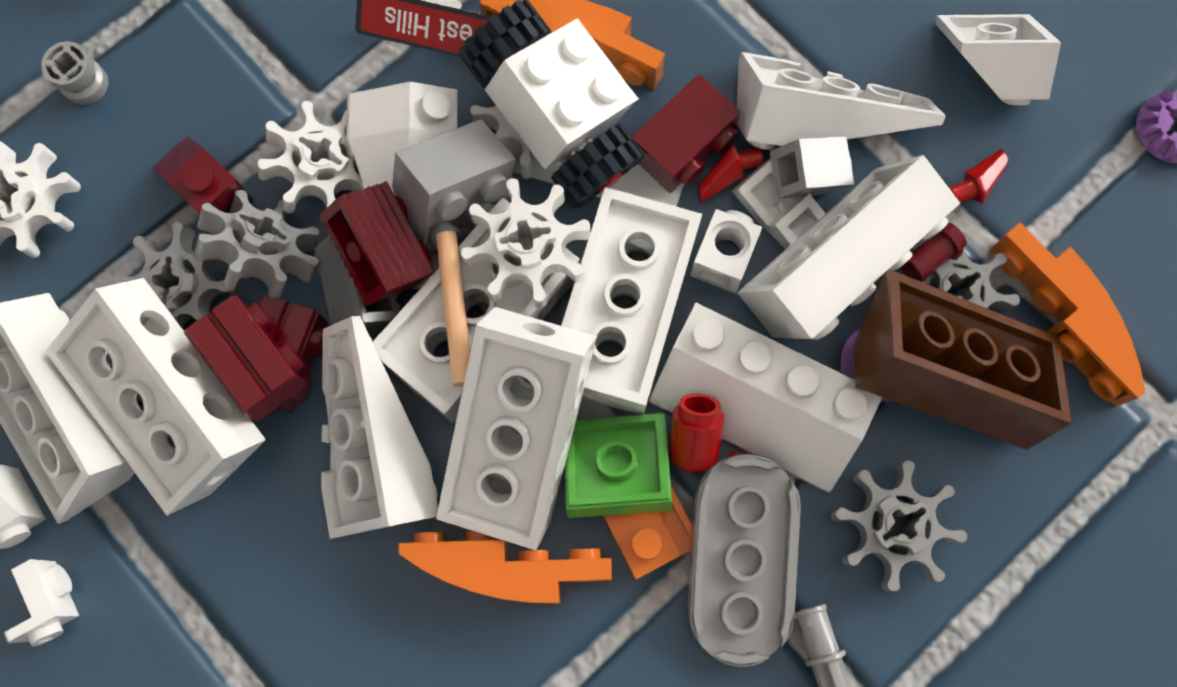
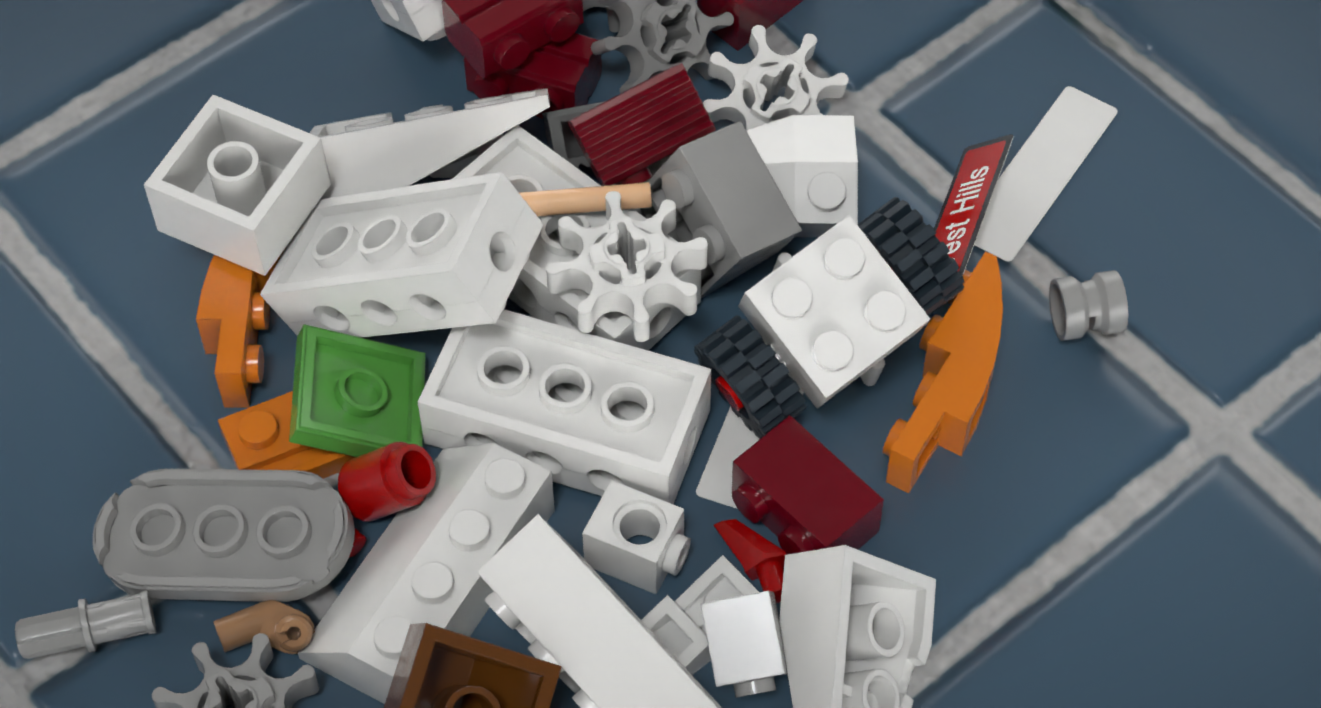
camera: 90 degrees right, 20 degrees down
(442, 574) = (238, 184): none -> white brick
(815, 502) = (285, 627): none -> medium nougat arm

